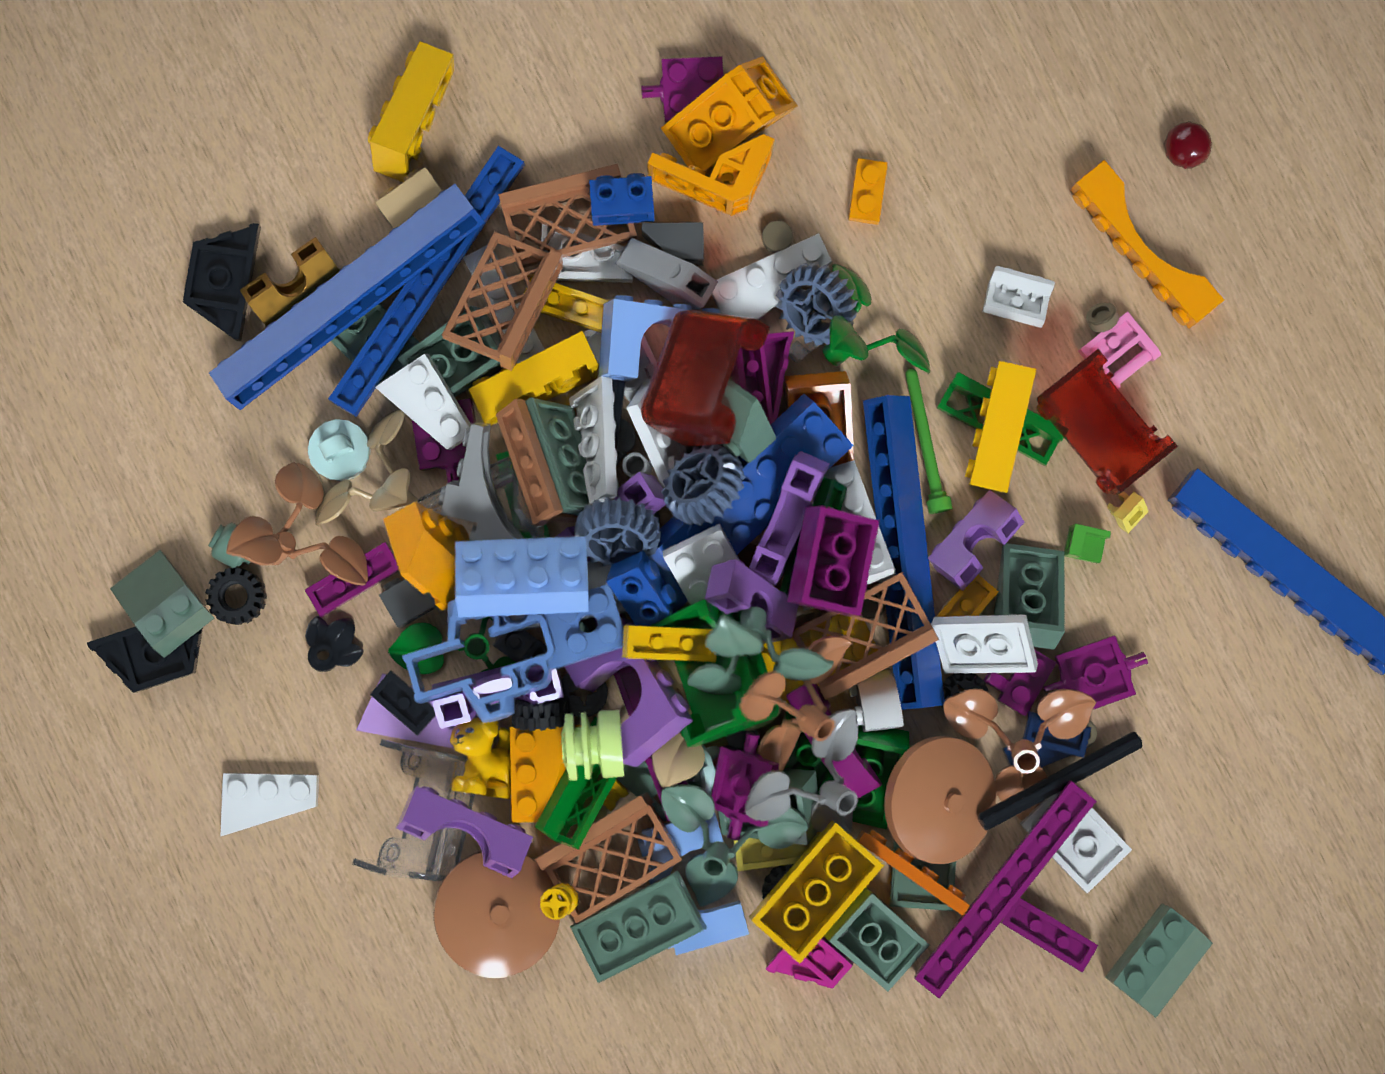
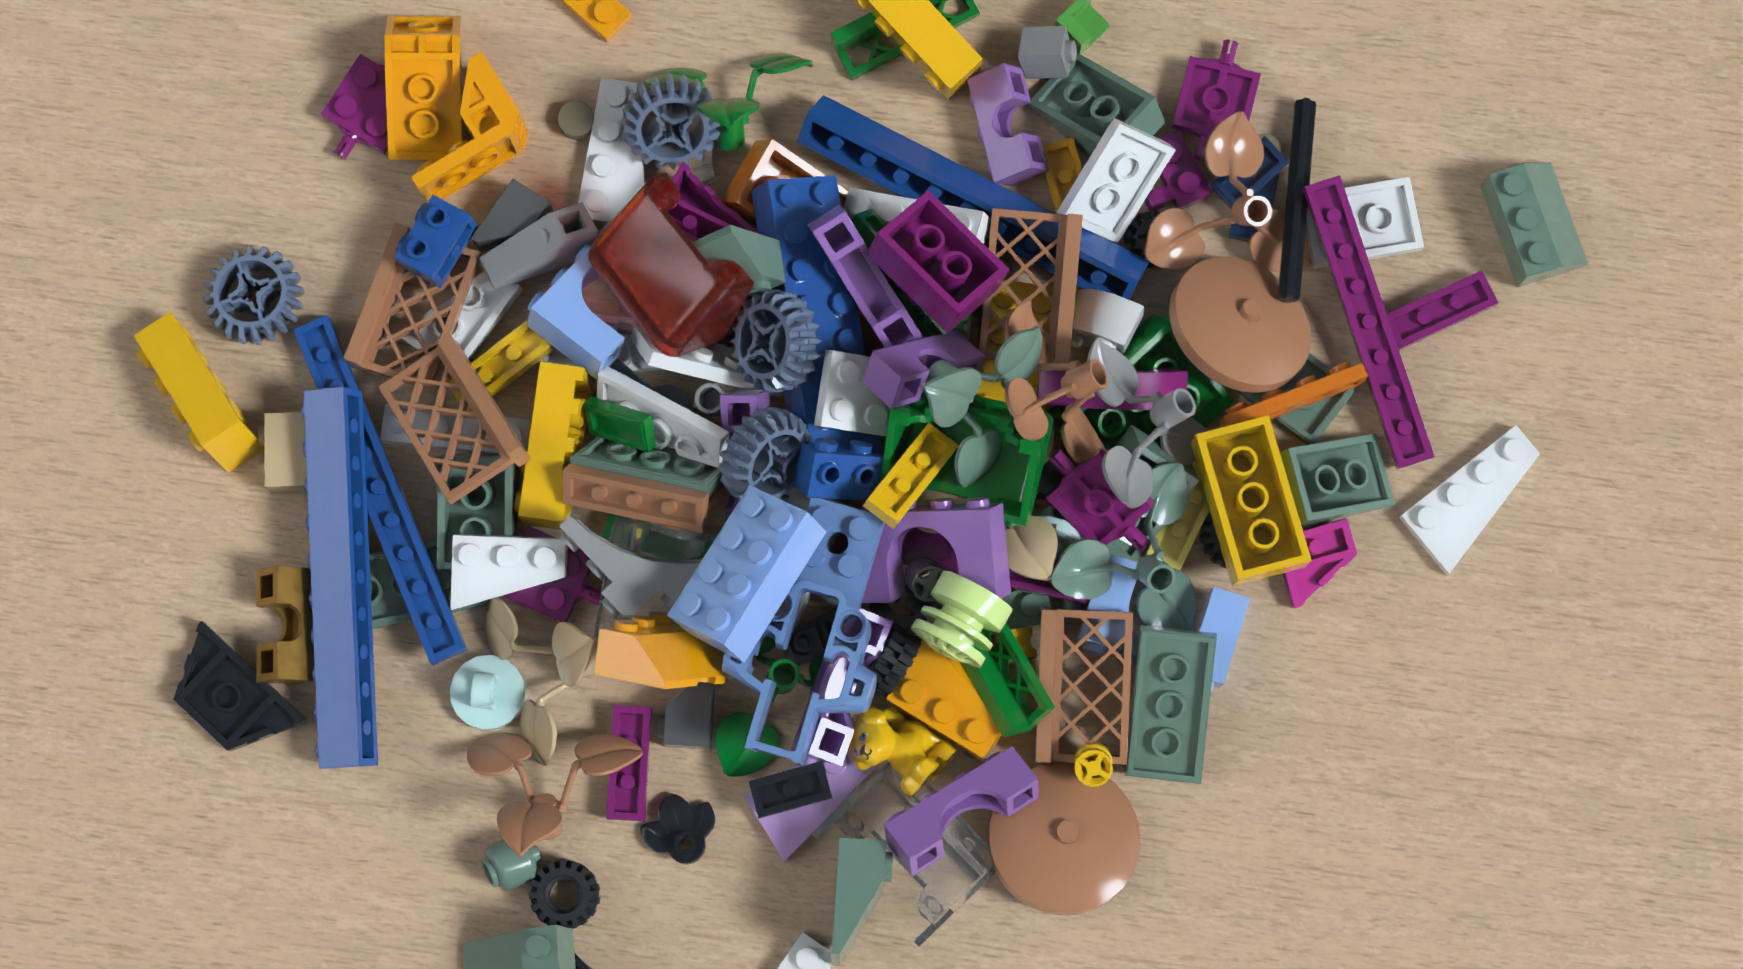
camera: 50 degrees left, 5 degrees down
(369, 793) = (859, 885): none -> sand green slope
(485, 87) = (240, 298): none -> sand blue gear
(578, 414) = (620, 424): none -> green tile
(602, 702) = (920, 585): none -> dark grey wheel
(921, 1040) = (1462, 505): none -> white wing
(938, 498) = (942, 136): bright green piece -> none
(1047, 532) = (1046, 52): none -> light grey brick

